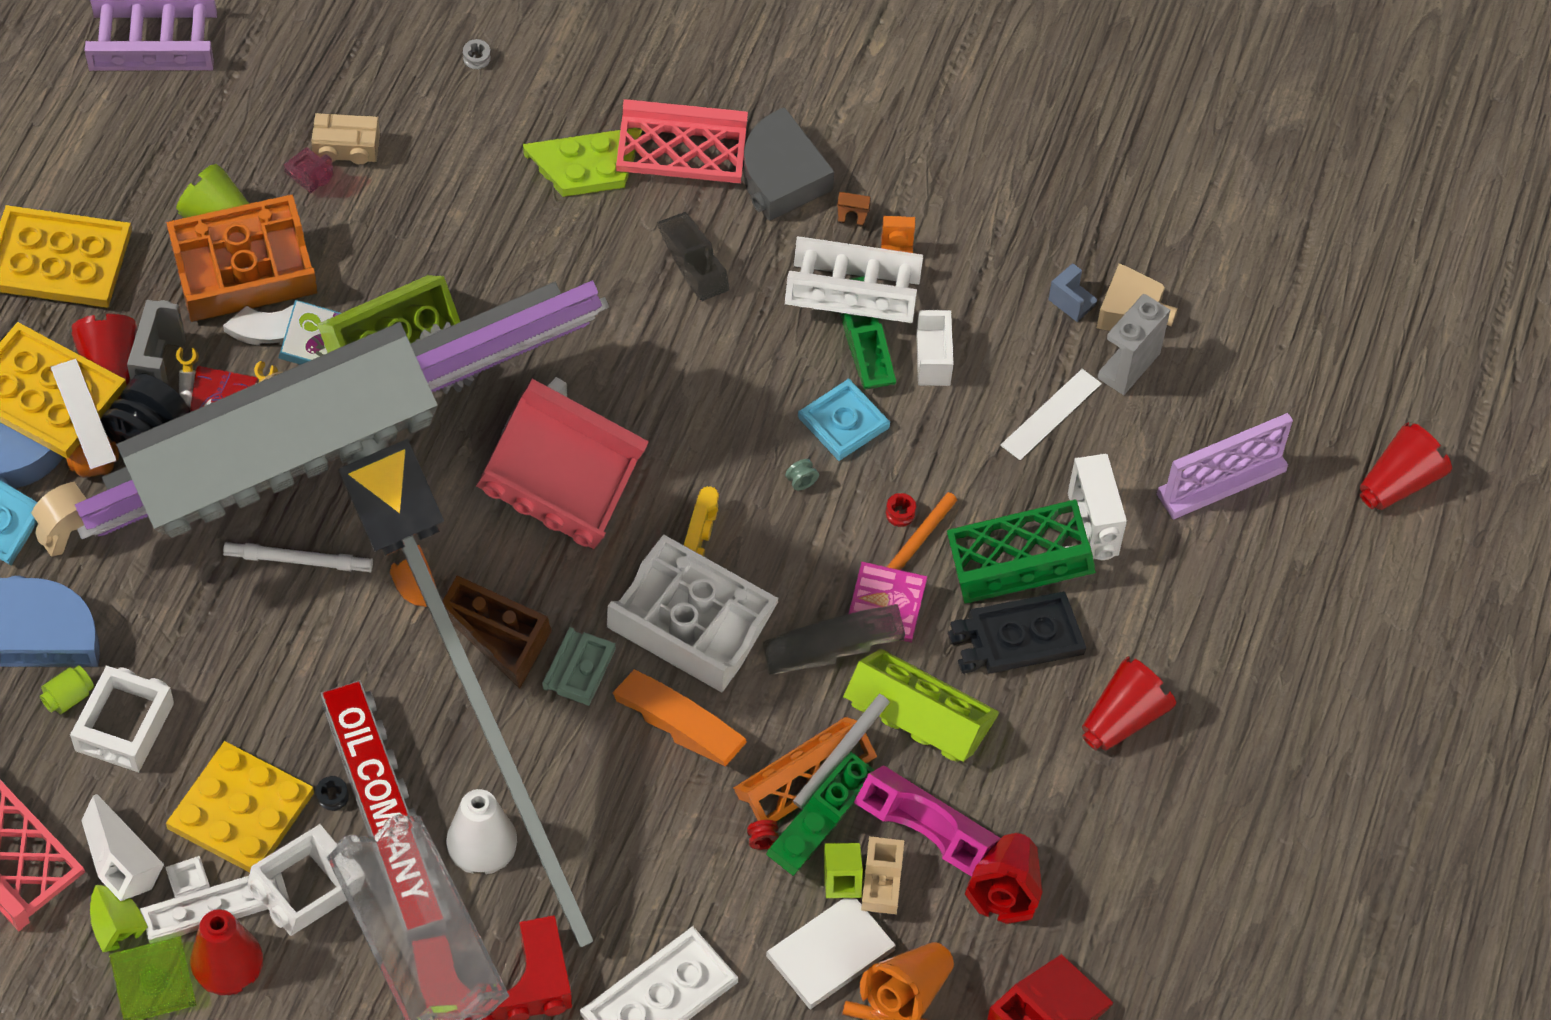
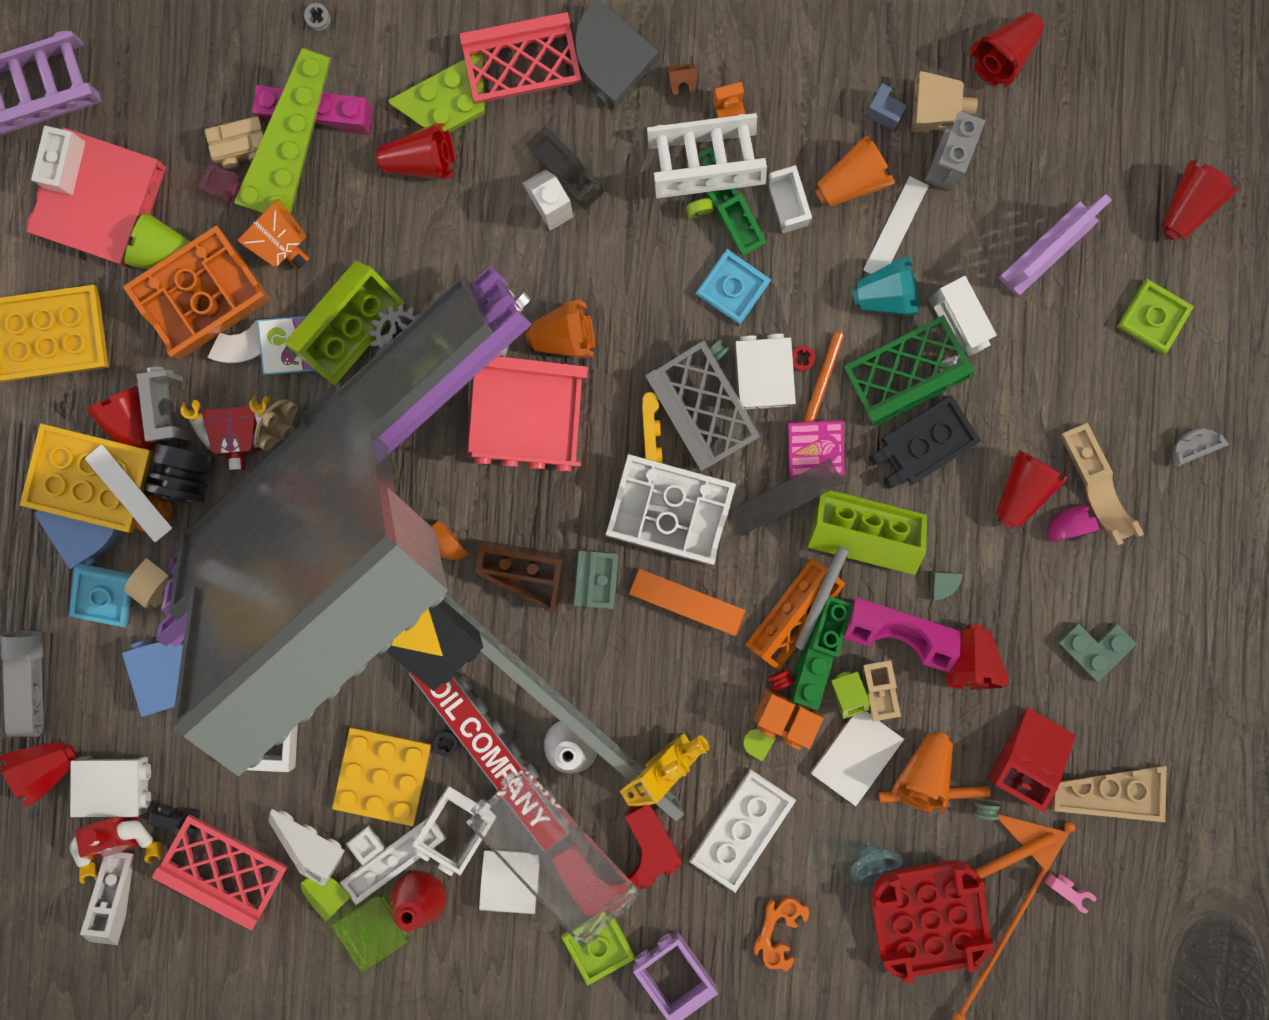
camera: 15 degrees left, 30 degrees up
(150, 93) = (58, 160): none -> white panel
(169, 141) = (107, 201): none -> coral panel
(343, 970) = (502, 889): none -> white slope
(350, 229) = (276, 237): none -> orange torso
(385, 159) = (284, 146): none -> lime wing
(471, 140) = (341, 112): none -> dark pink arch
(538, 197) = (419, 154): none -> red cone
(590, 862) = (664, 770): none -> yellow hose
(635, 403) = (563, 332): none -> orange cone
(665, 274) = (549, 199): none -> white slope
(713, 901) = (757, 743): none -> lime tile
(739, 519) = (682, 418): none -> light grey fence
(760, 880) = (781, 717): none -> orange piece
(831, 331) = (699, 208): none -> lime tile
(850, 509) = (764, 372): none -> white brick
(998, 790) = (944, 584): none -> sand green tile
(1016, 342) = (855, 175): none -> orange cone
(1023, 462) = (889, 290): none -> teal cone
(1164, 923) = (1096, 656): none -> sand green plate
(1172, 767) = (1072, 523): none -> dark pink brick
(1216, 728) = (1099, 484): none -> tan piece
(1223, 270) = (1005, 50): none -> red cone
(1331, 580) = (1155, 316): none -> lime tile
(1348, 723) = (1197, 444): none -> light grey plate

